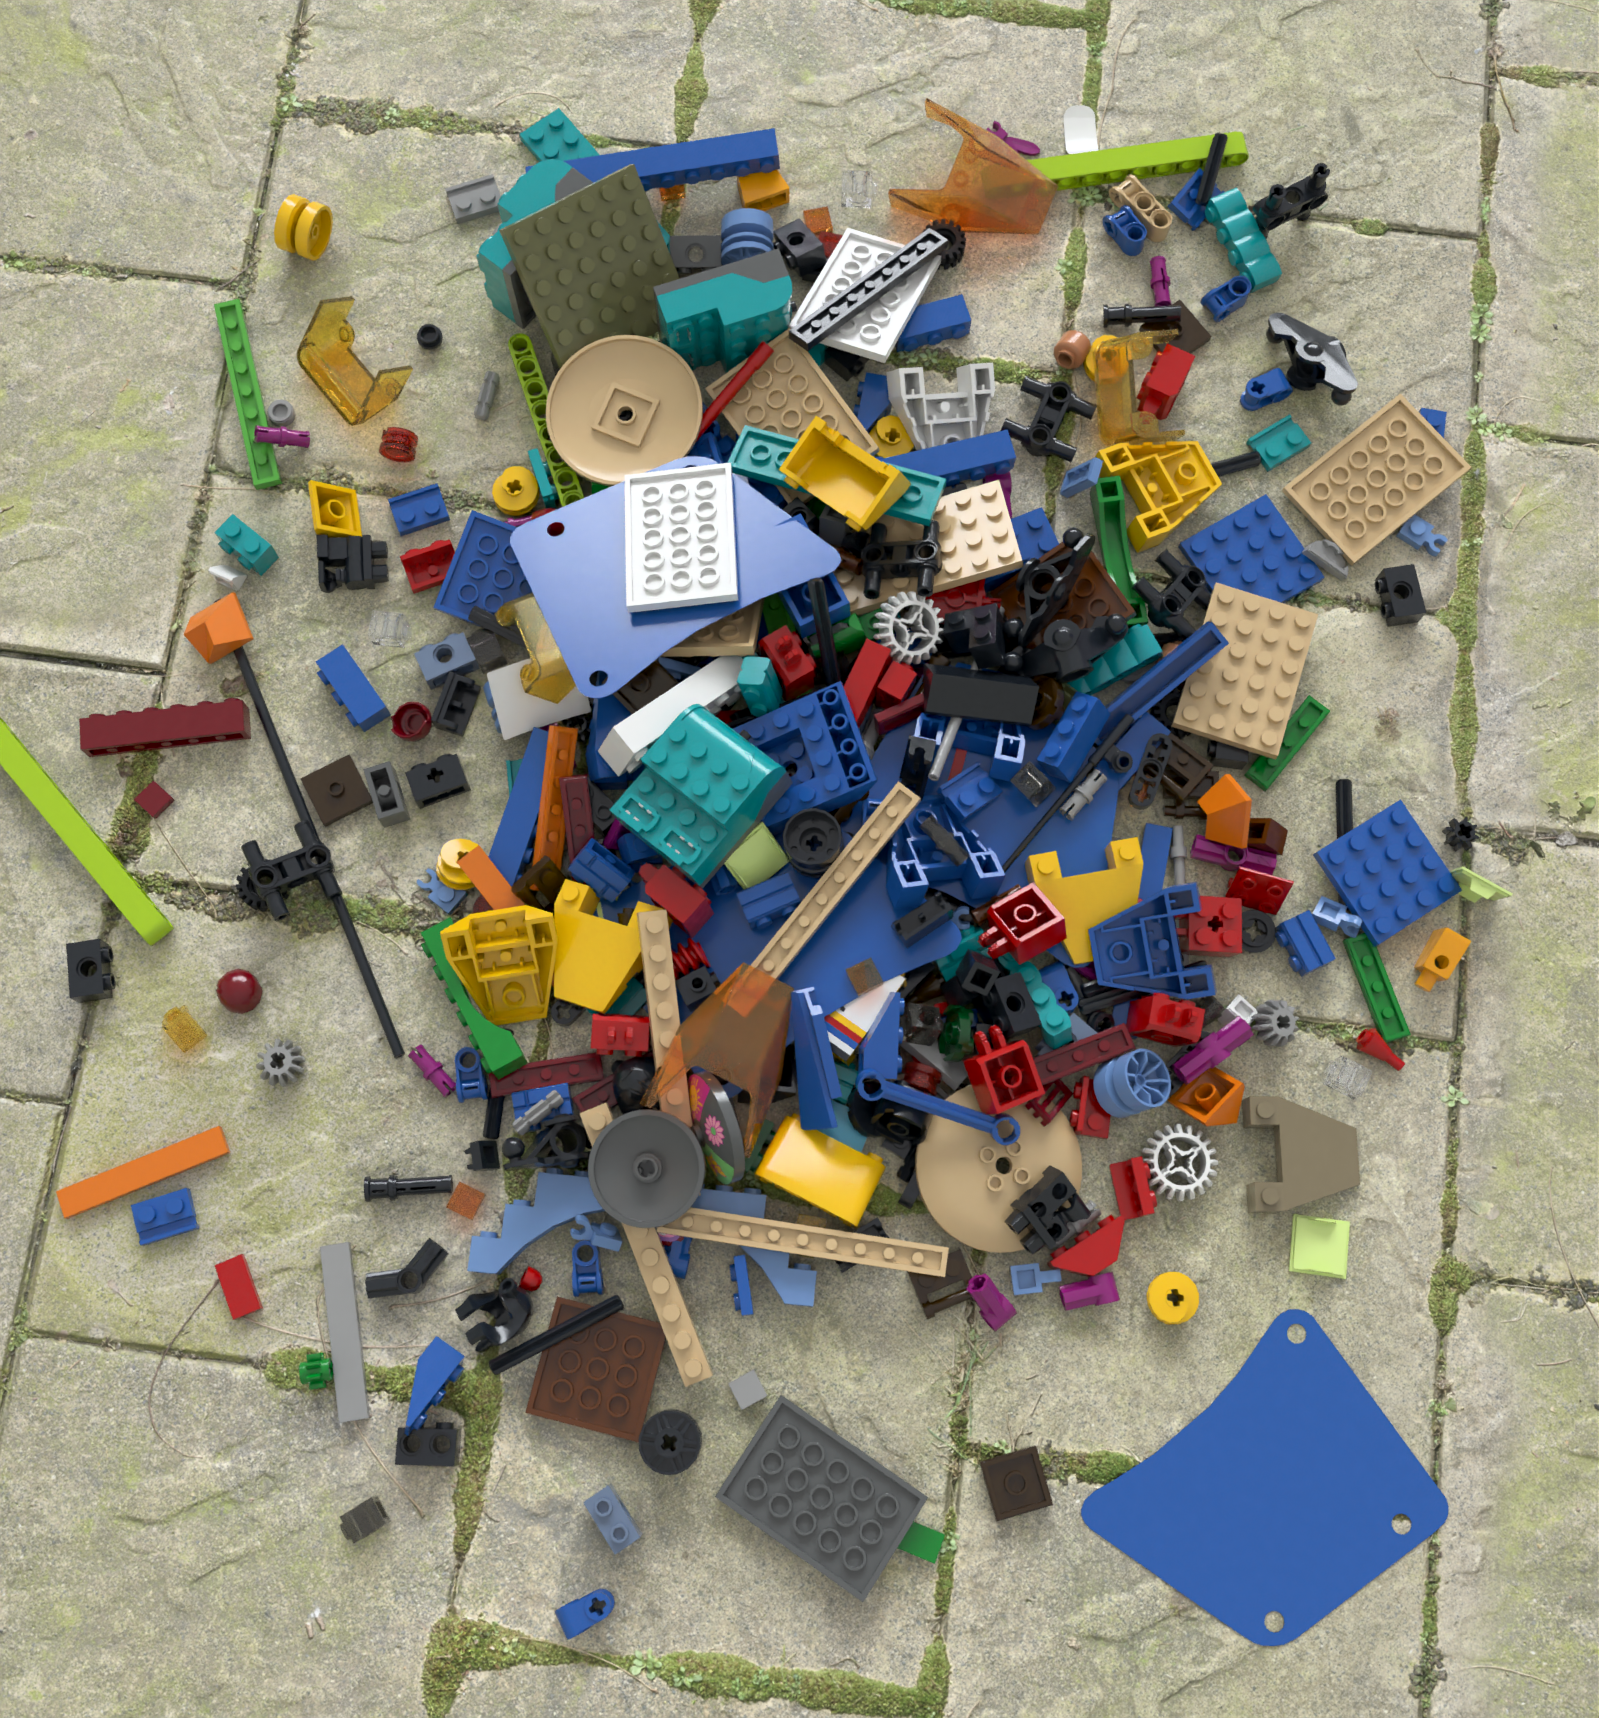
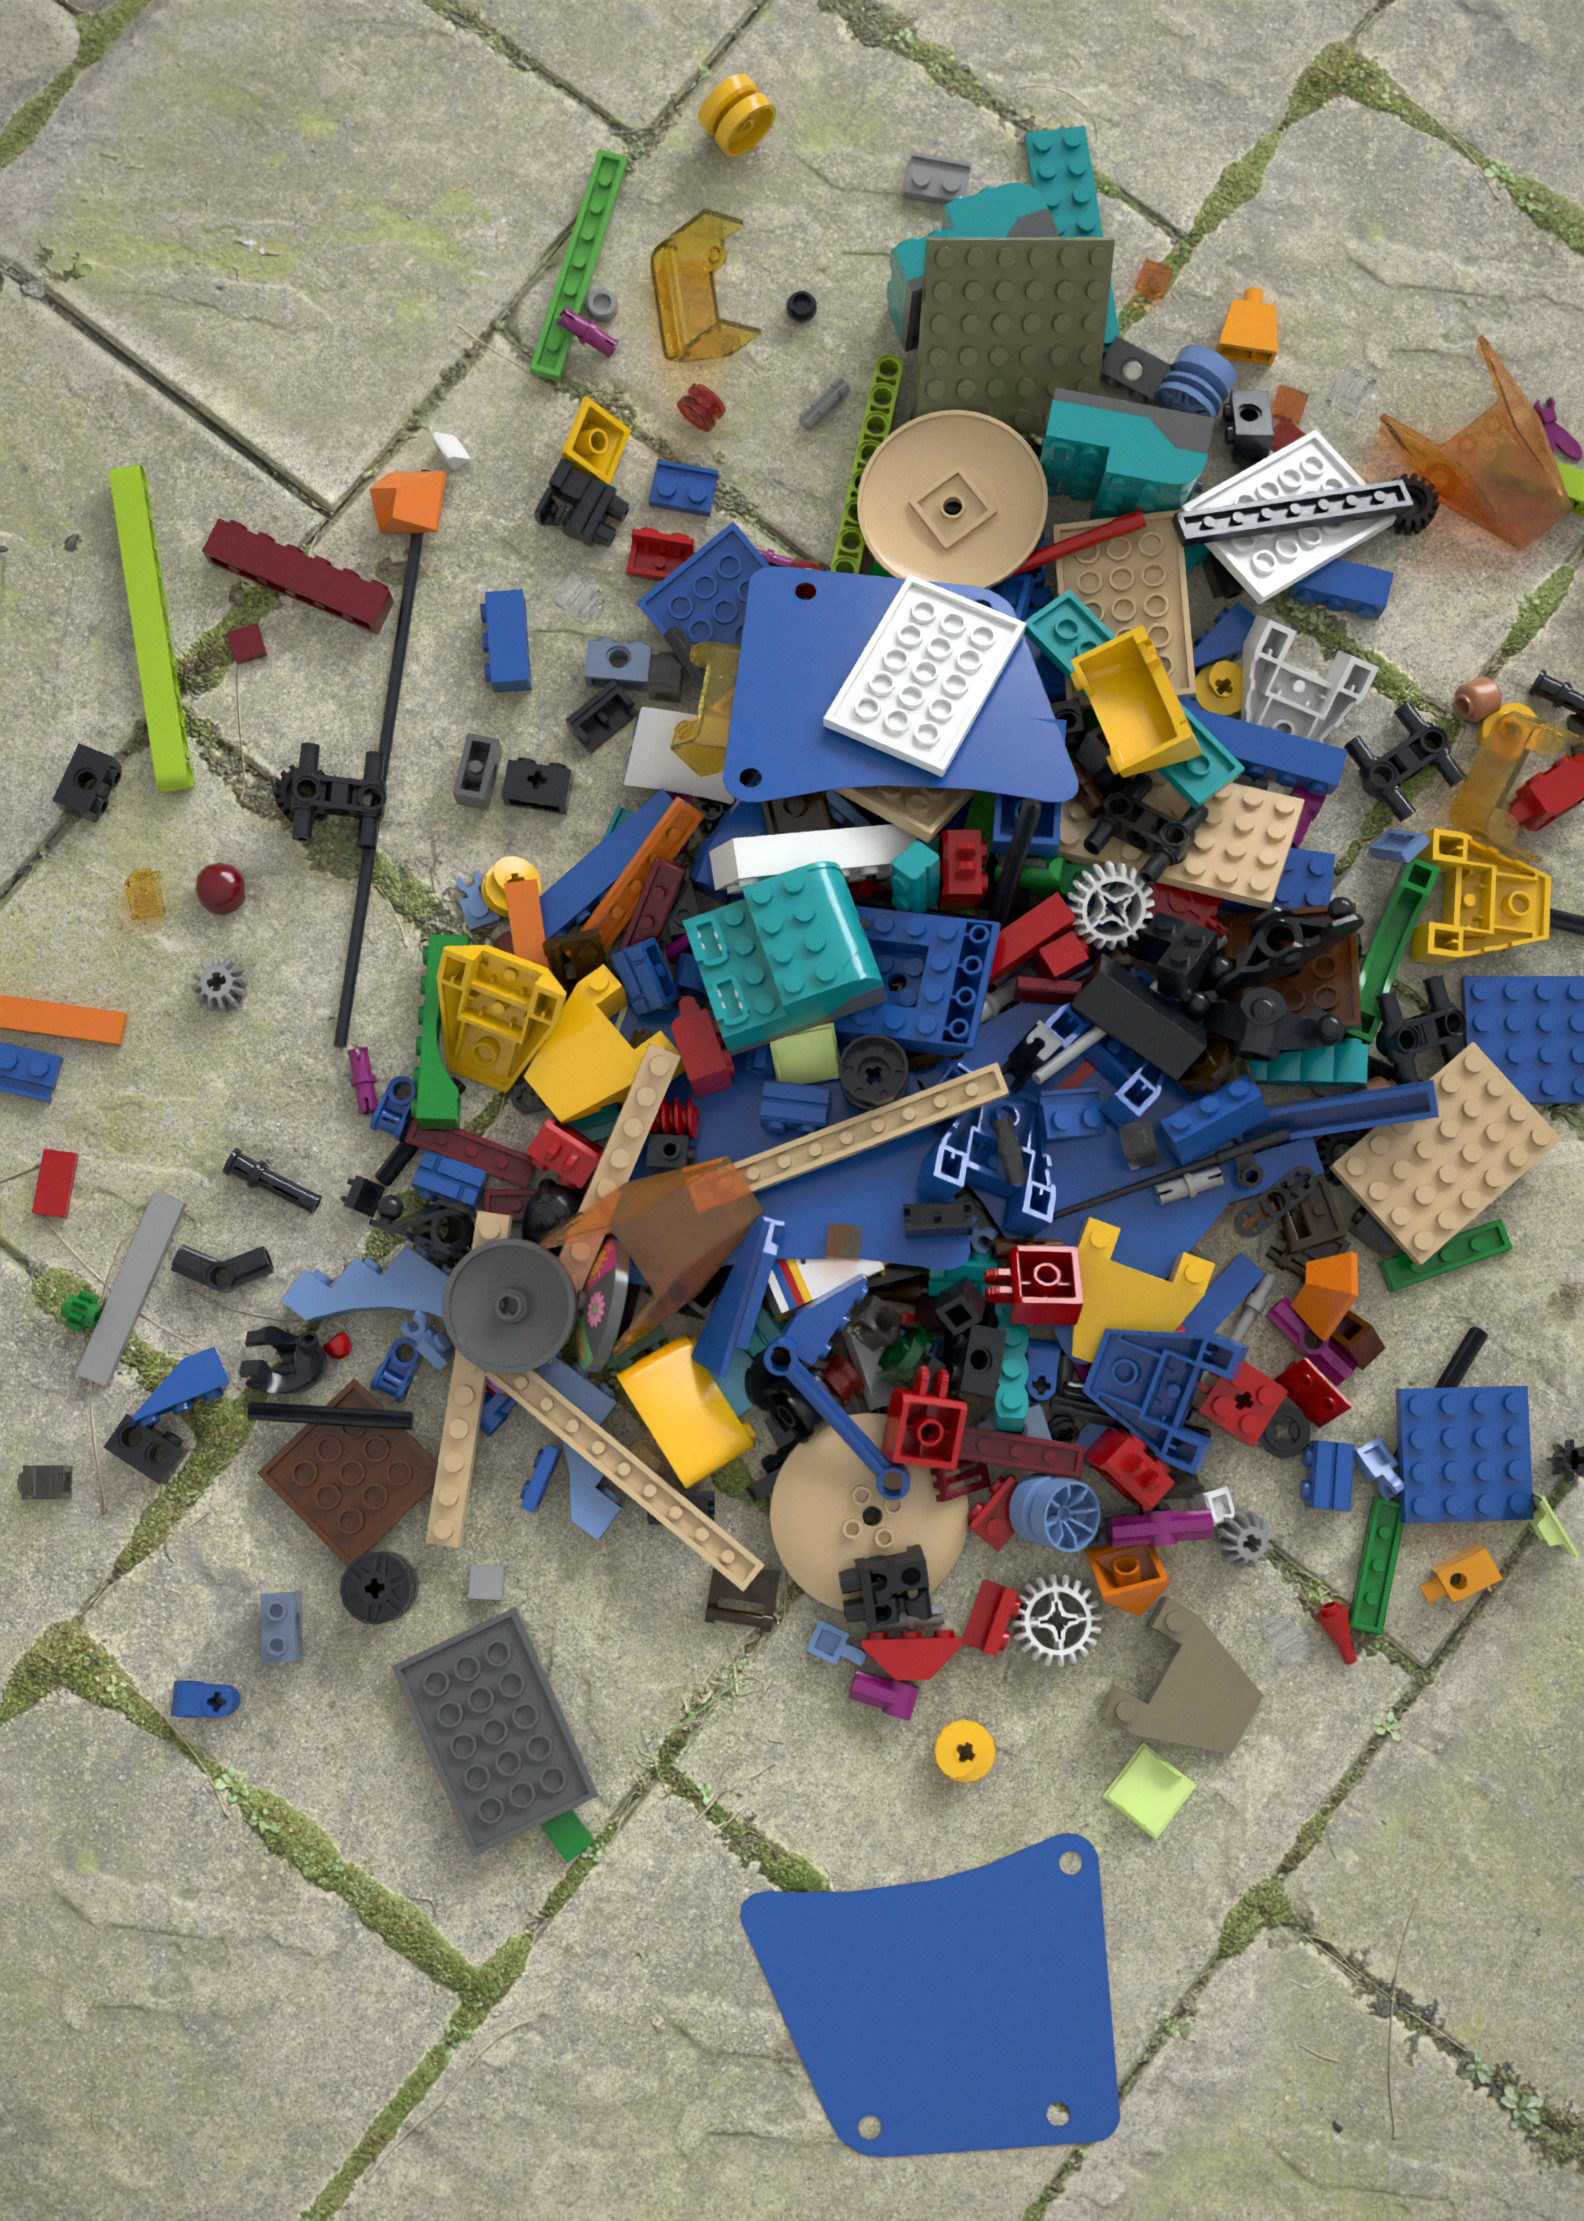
camera: 30 degrees right, 5 degrees up
(246, 544) = (486, 427): teal brick -> none
(337, 790) = (432, 737): dark brown plate -> none
(411, 722) = (546, 710): dark red hair -> none
(465, 1200) = (321, 1230): clear orange tile -> none
(525, 490) = (799, 512): yellow piece -> none
(537, 1112) = (439, 1185): light grey axle -> none
(541, 472) = (830, 520): teal plate -> none
(689, 160) = (1175, 259): blue brick -> none
(993, 1305) = (777, 1647): magenta piece -> none
(1015, 1483) = (694, 1835): dark brown plate -> none

